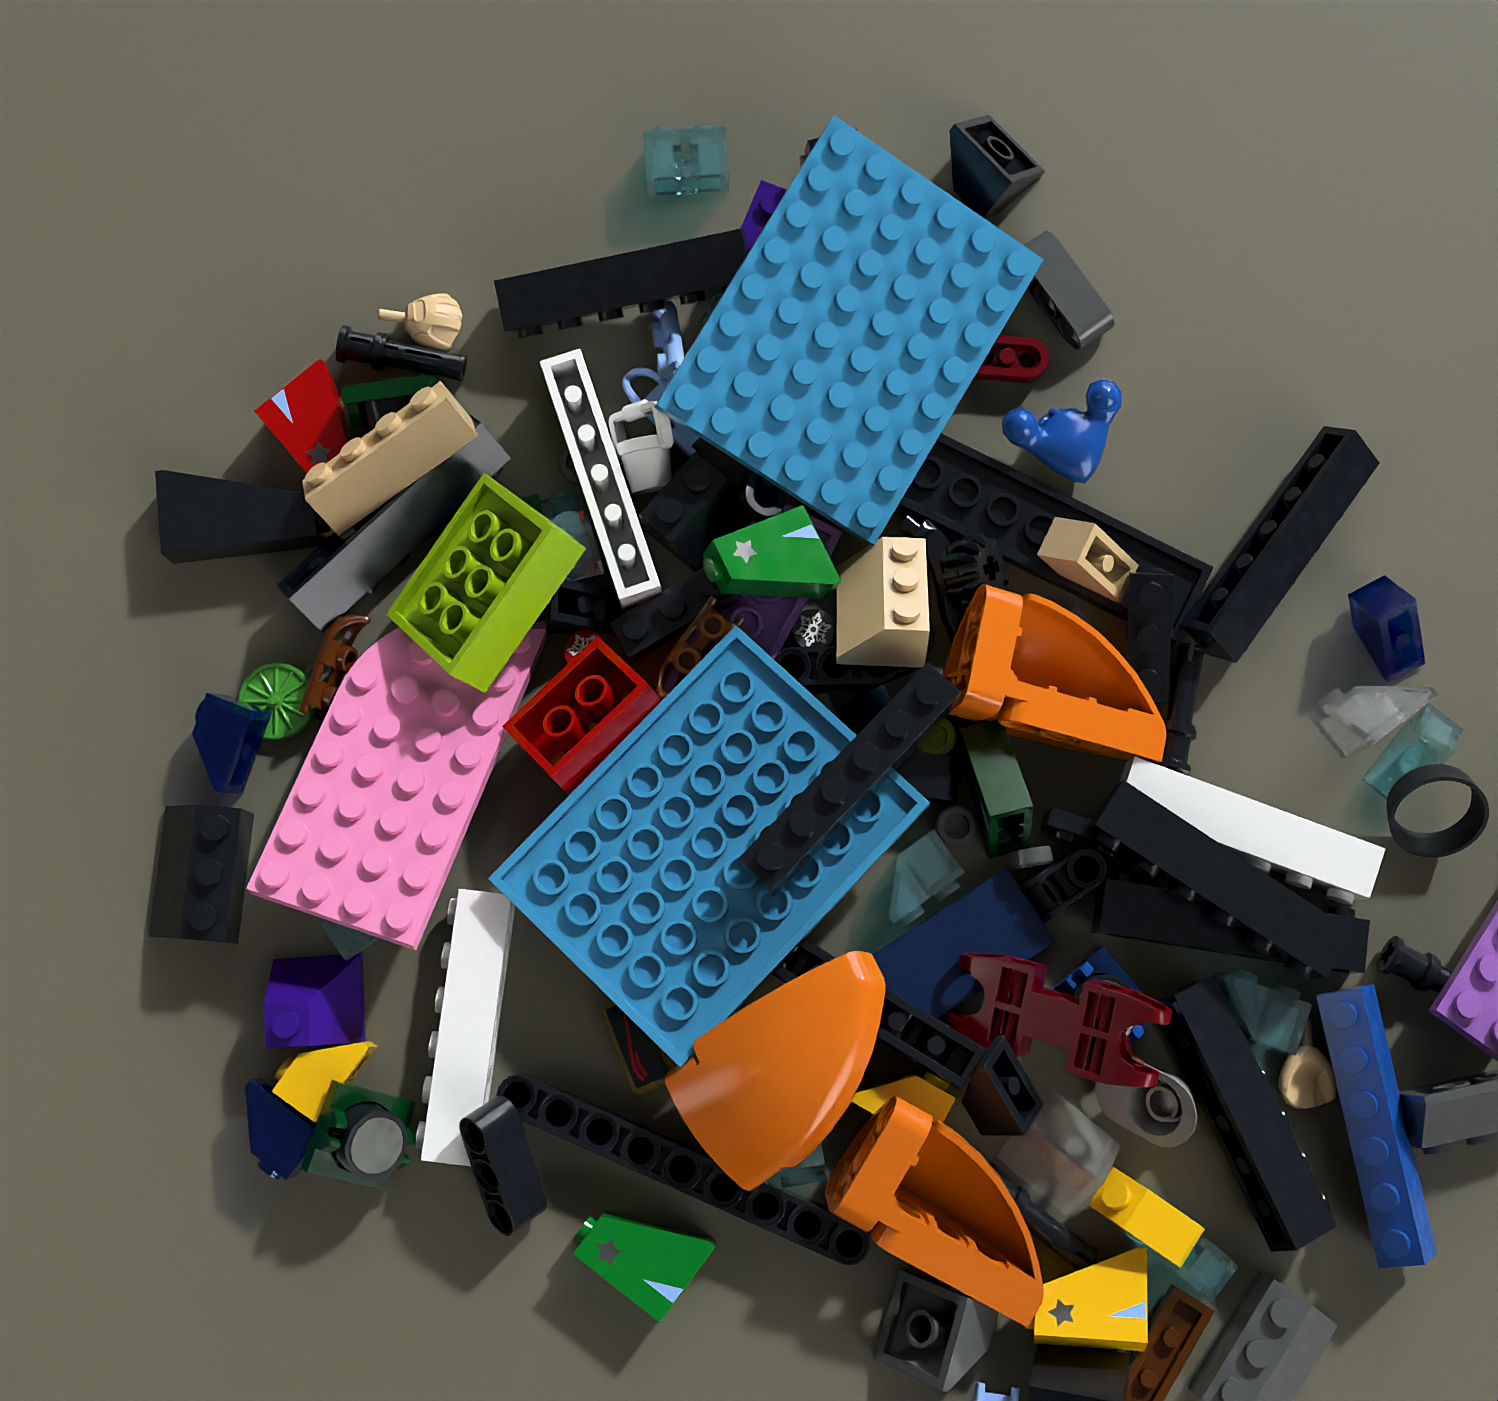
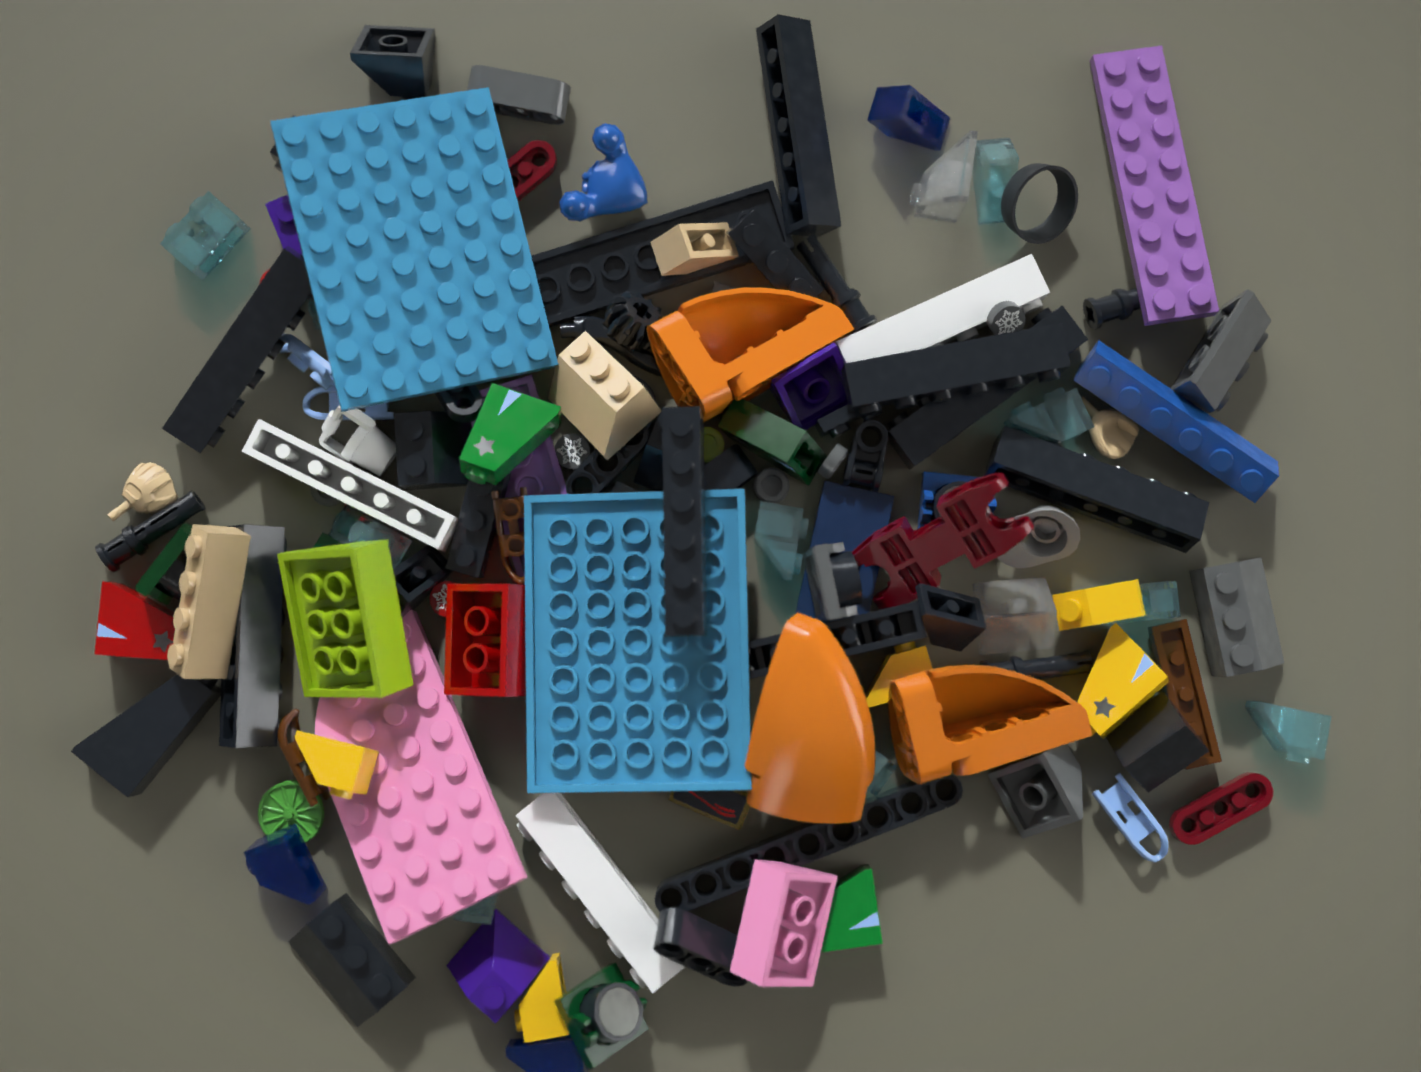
camera: 45 degrees left, 5 degrees up
(358, 696) = (338, 763): none -> yellow slope
(590, 1215) = (783, 925): none -> bright pink slope
(929, 959) = (833, 581): none -> dark grey piece
(1074, 775) = (811, 388): none -> dark purple slope
(1307, 880) = (1005, 318): none -> dark grey tile

